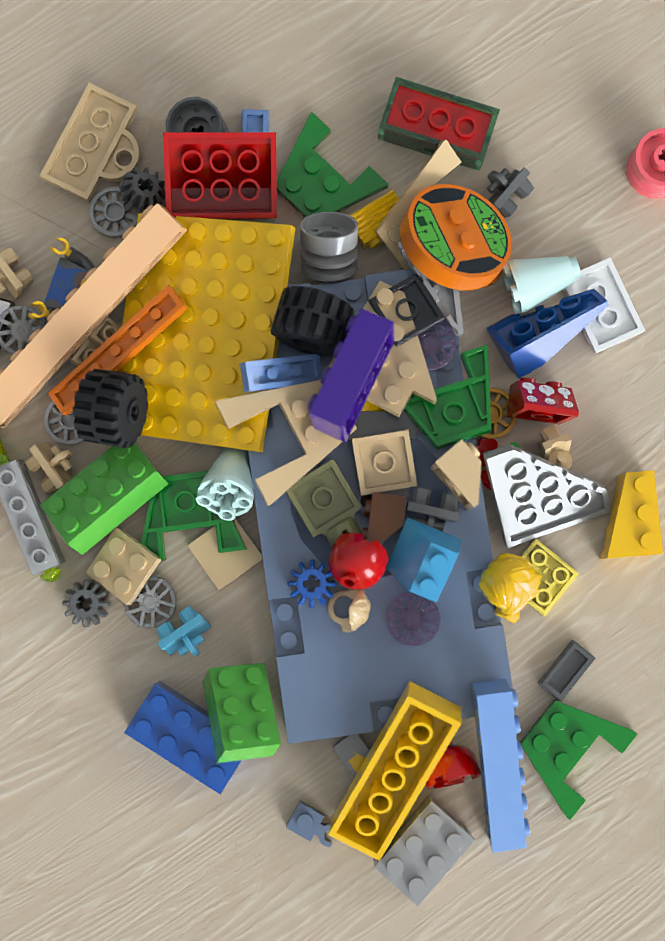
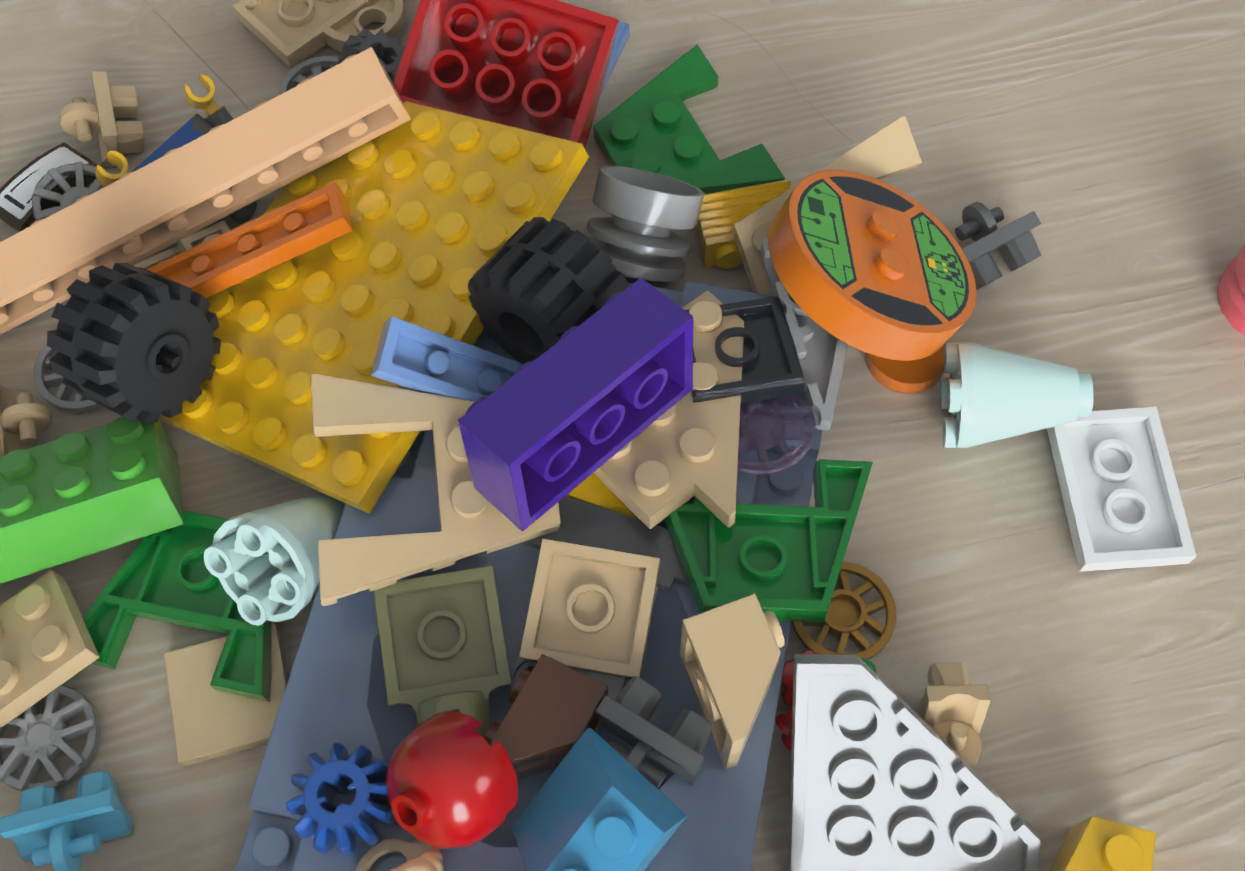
camera: 25 degrees right, 20 degrees down
(425, 116) = (870, 81): brick -> none
(534, 338) = (967, 503): blue wedge -> none
(541, 402) = (949, 618): red slope -> none

